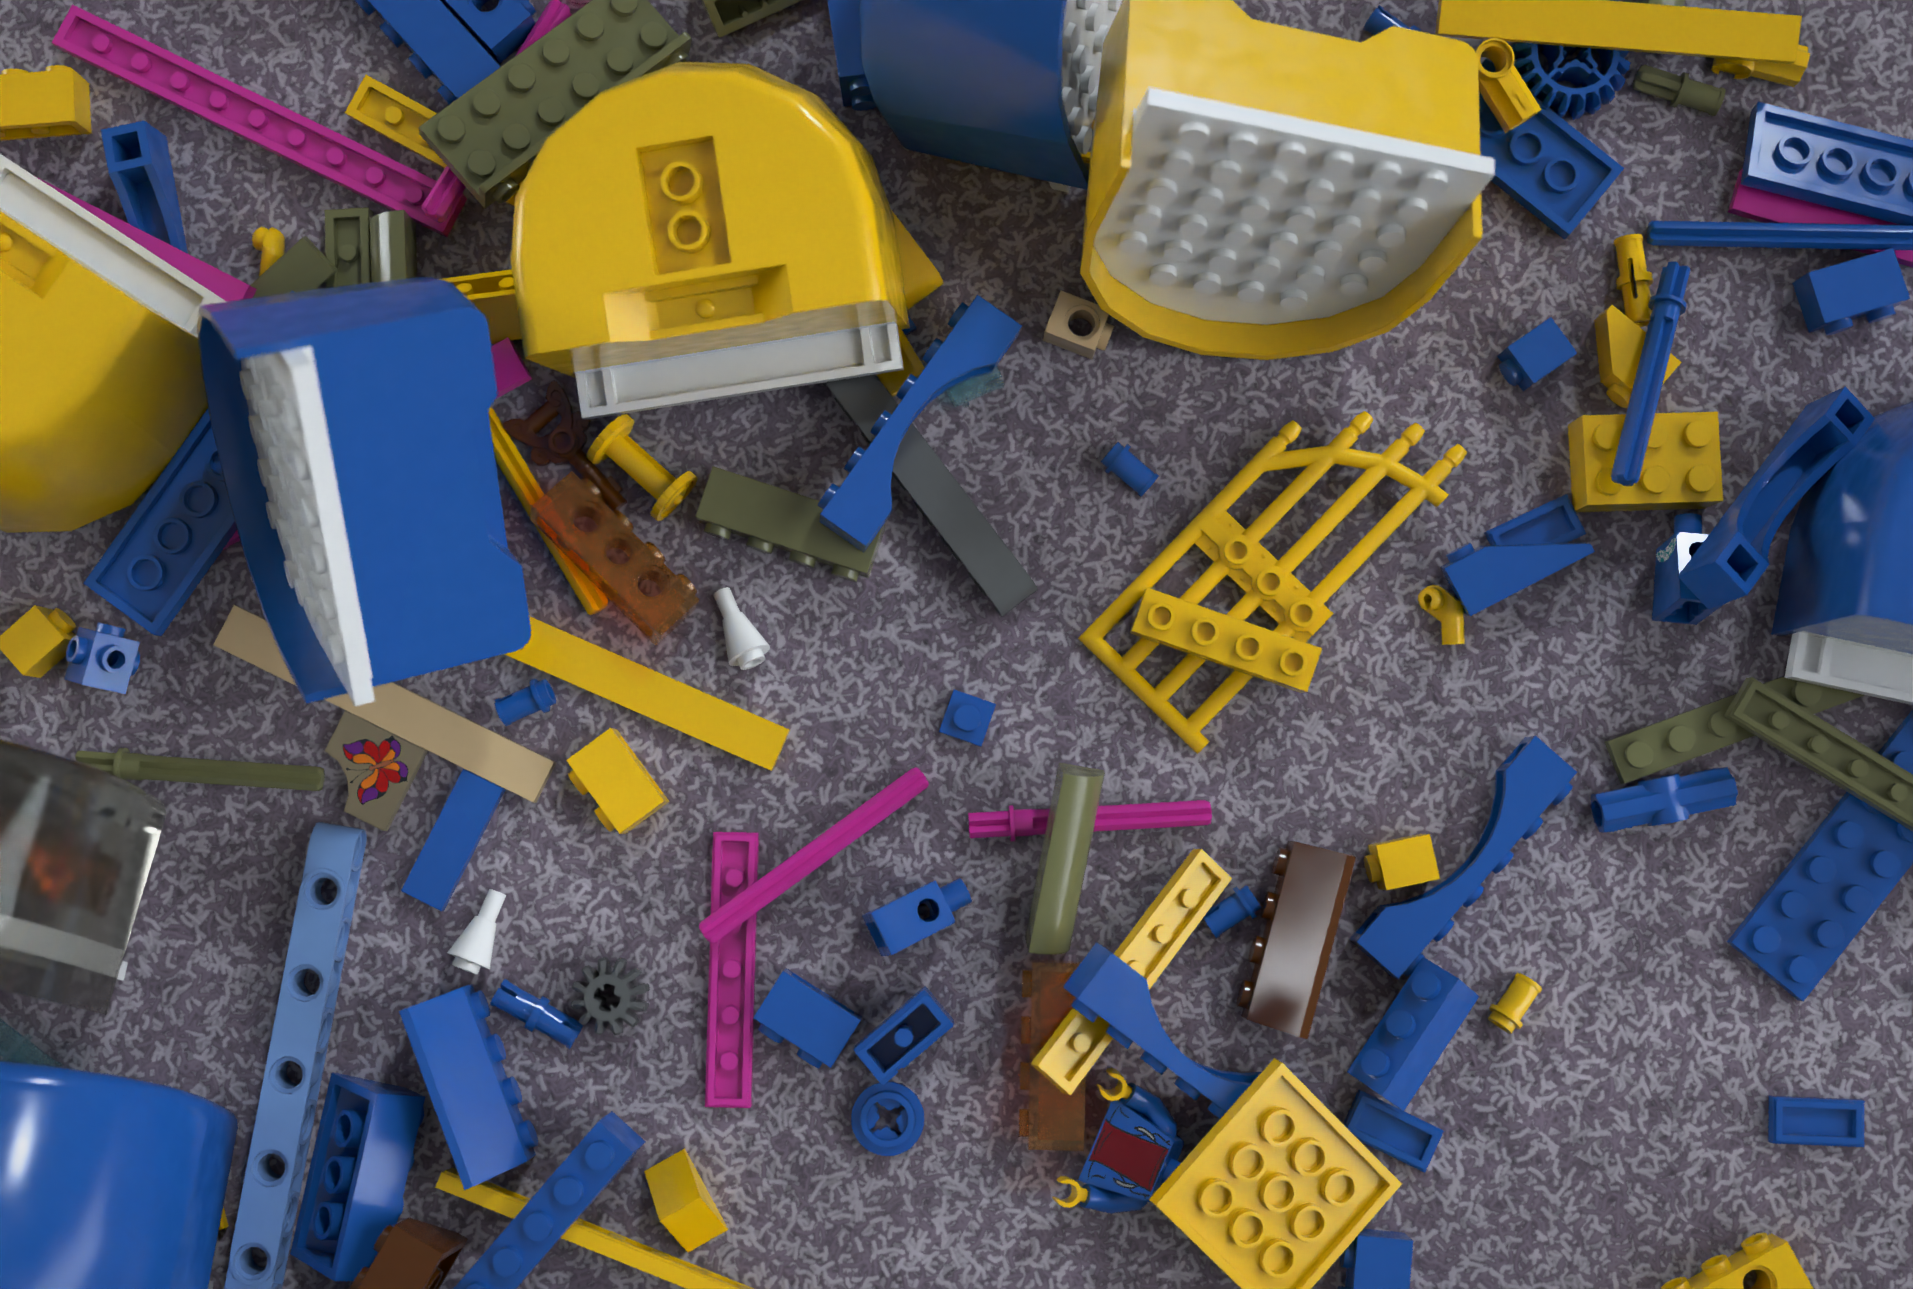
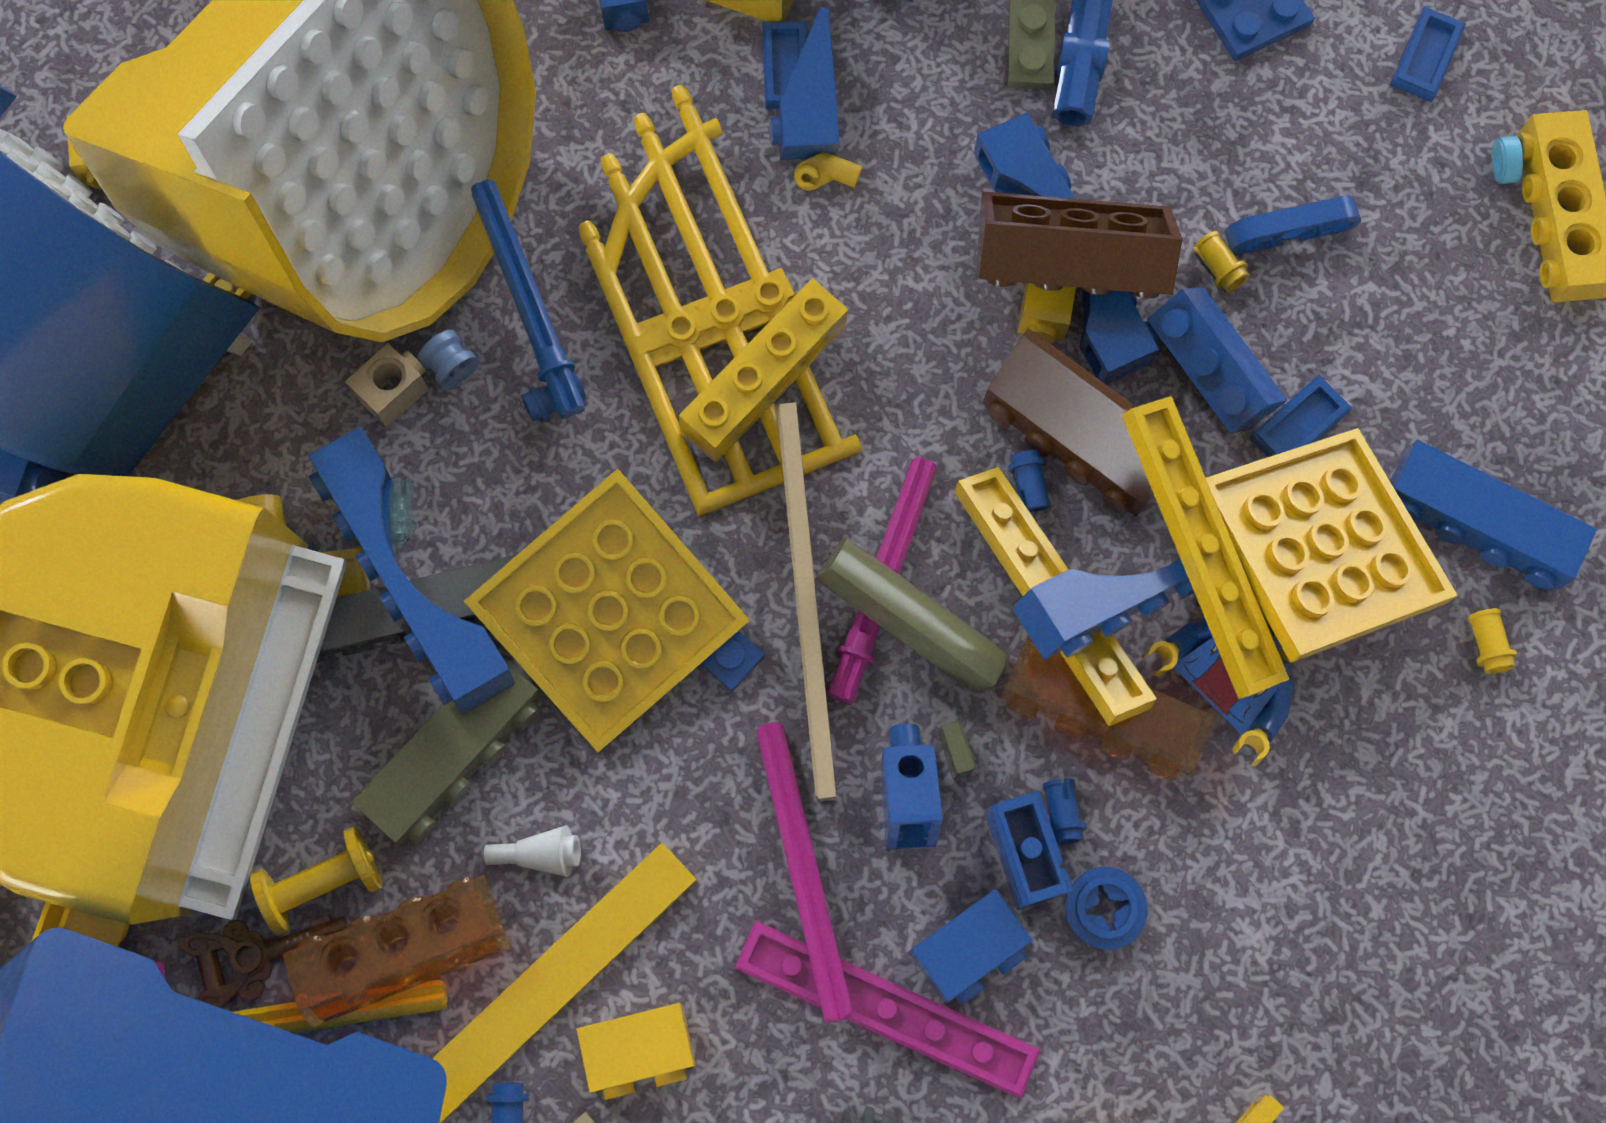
camera: 70 degrees left, 10 degrees down
(953, 1052) = (1064, 811): none -> blue pin
(957, 601) = (607, 610): none -> yellow plate
(965, 941) = (956, 750): none -> olive tile
(1039, 762) = (806, 603): none -> tan tile
(1122, 365) = (448, 359): none -> medium blue wheel
(1202, 408) = (548, 352): none -> blue axle
(1220, 1087) = (1205, 547): none -> yellow plate
(1463, 868) = (1078, 244): none -> reddish brown slope
(1585, 1062) = (1300, 221): none -> blue beam
(1735, 1232) = (1507, 159): none -> medium azure tile

